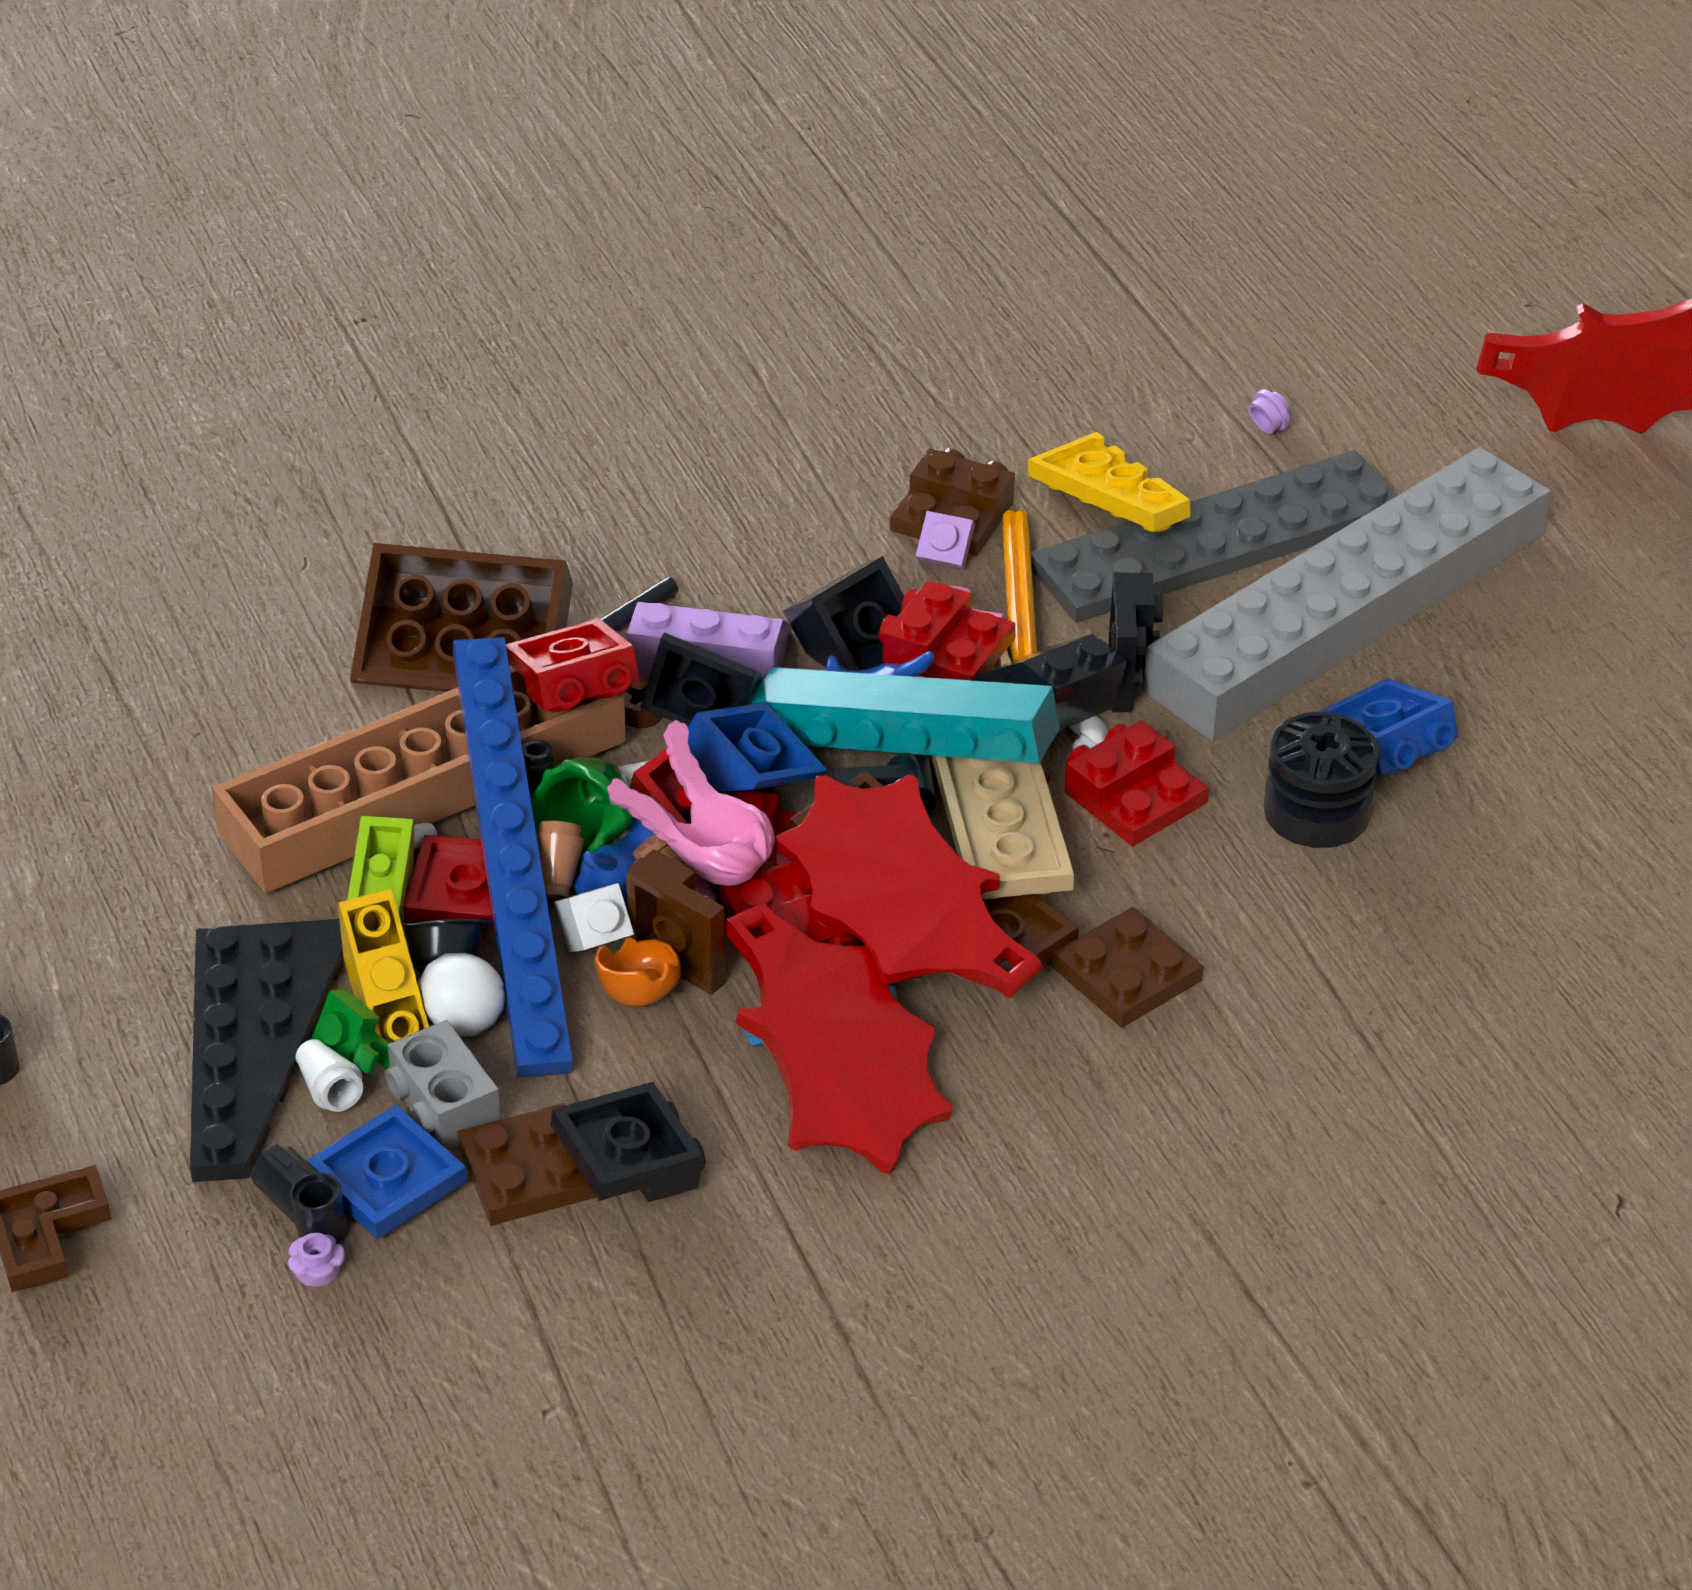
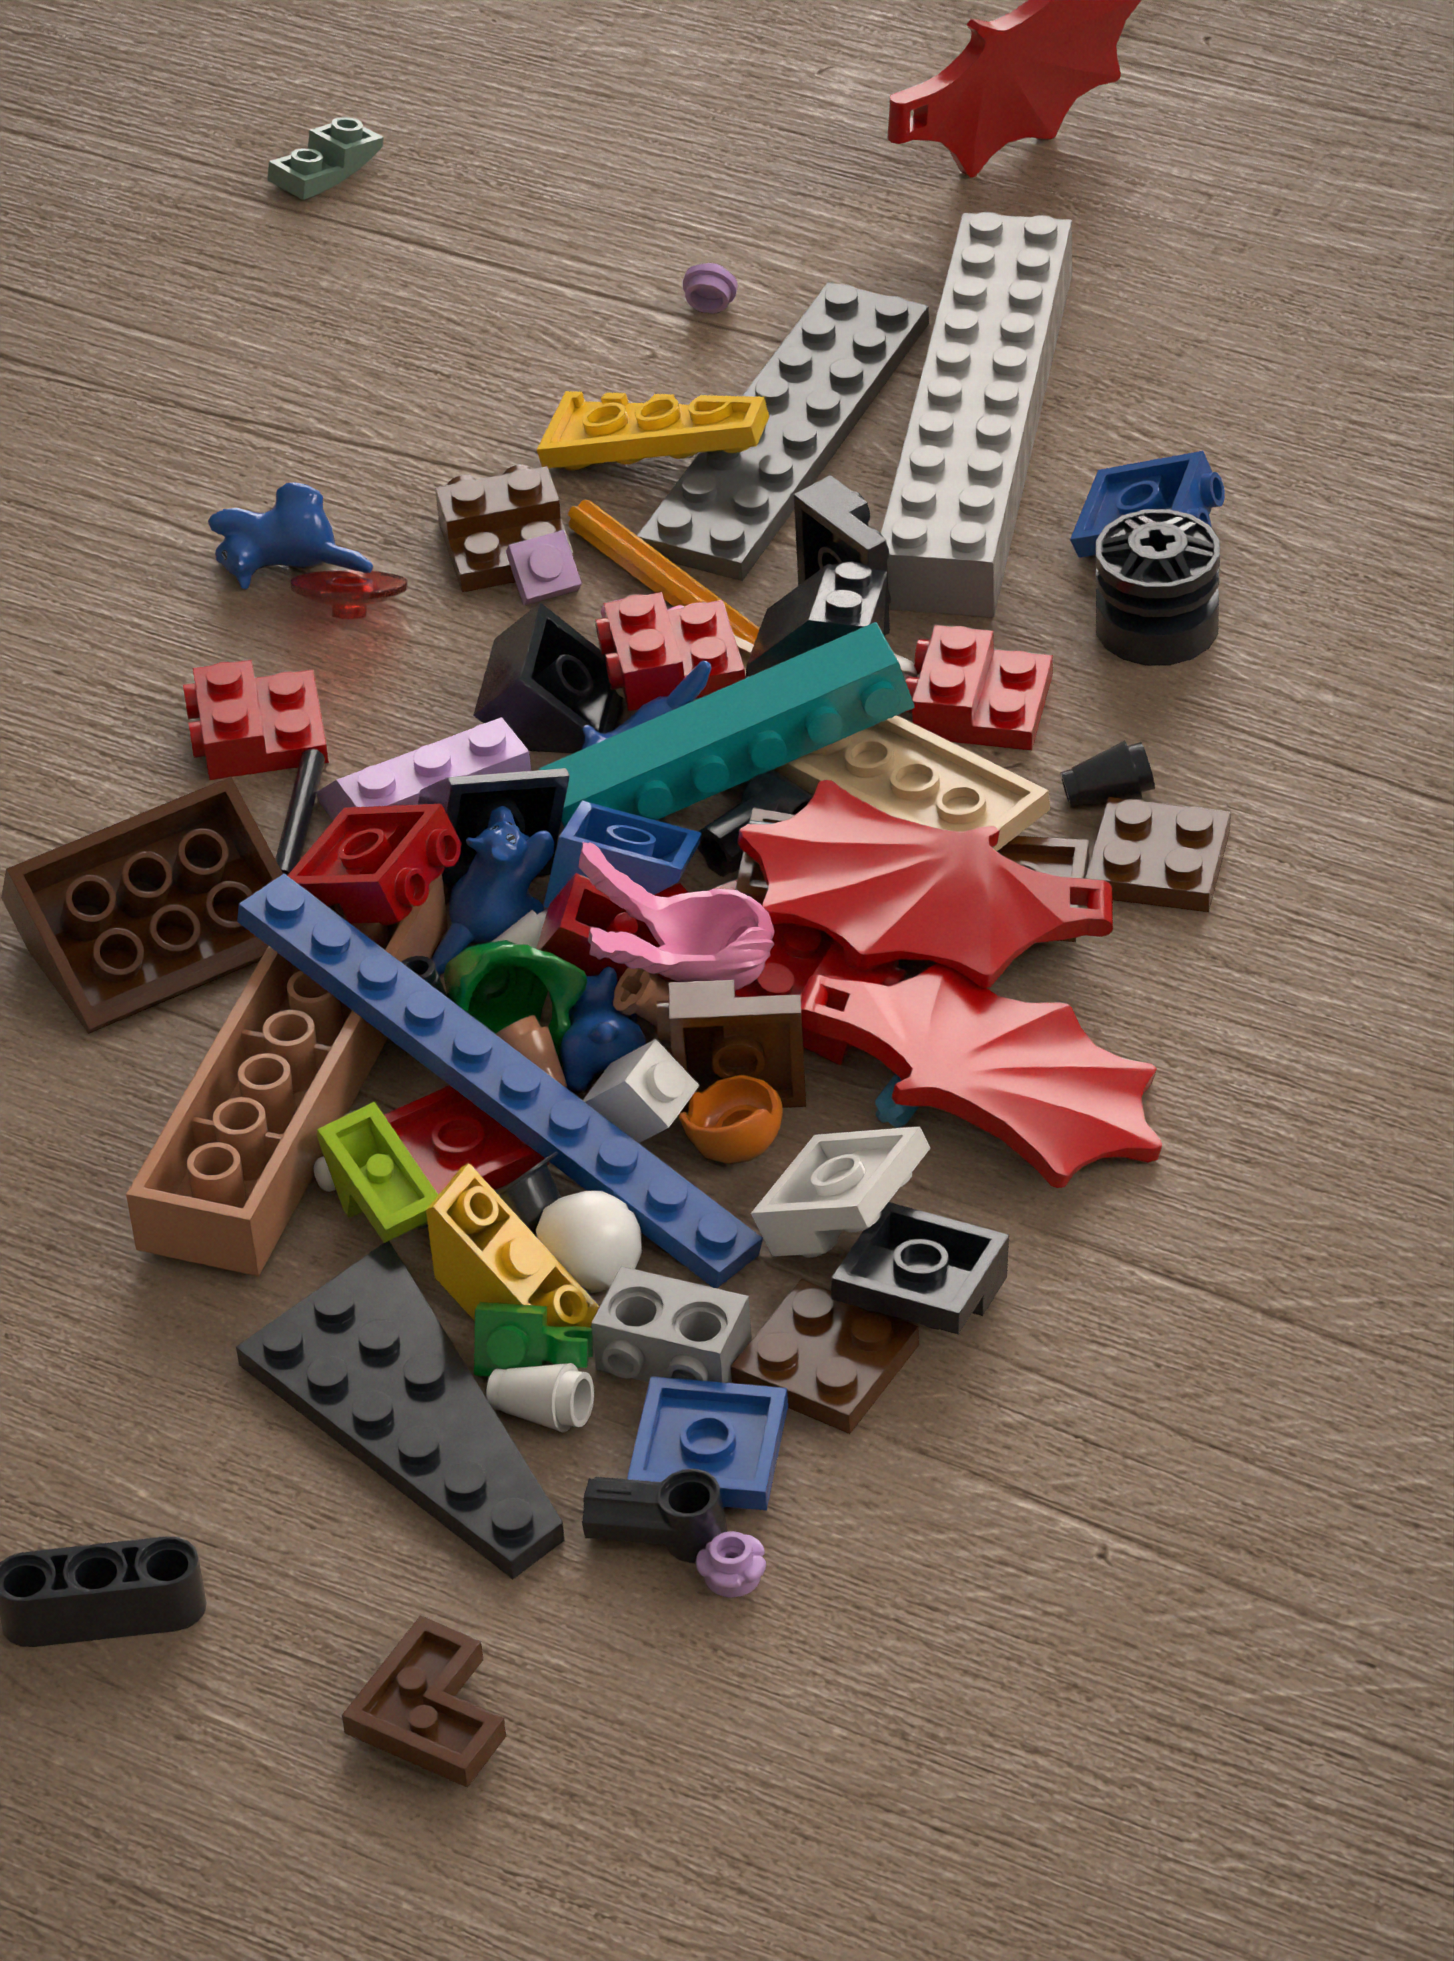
camera: 35 degrees left, 0 degrees up
(634, 1052) = (836, 1187): none -> white plate
(644, 733) = (496, 885): none -> blue animal
(661, 538) = (252, 721): none -> plate
(807, 485) = (349, 590): none -> clear red dish
(808, 428) = (288, 535): none -> blue animal
(1134, 199) = (331, 157): none -> sand green slope
(1152, 893) = (1113, 773): none -> black cone

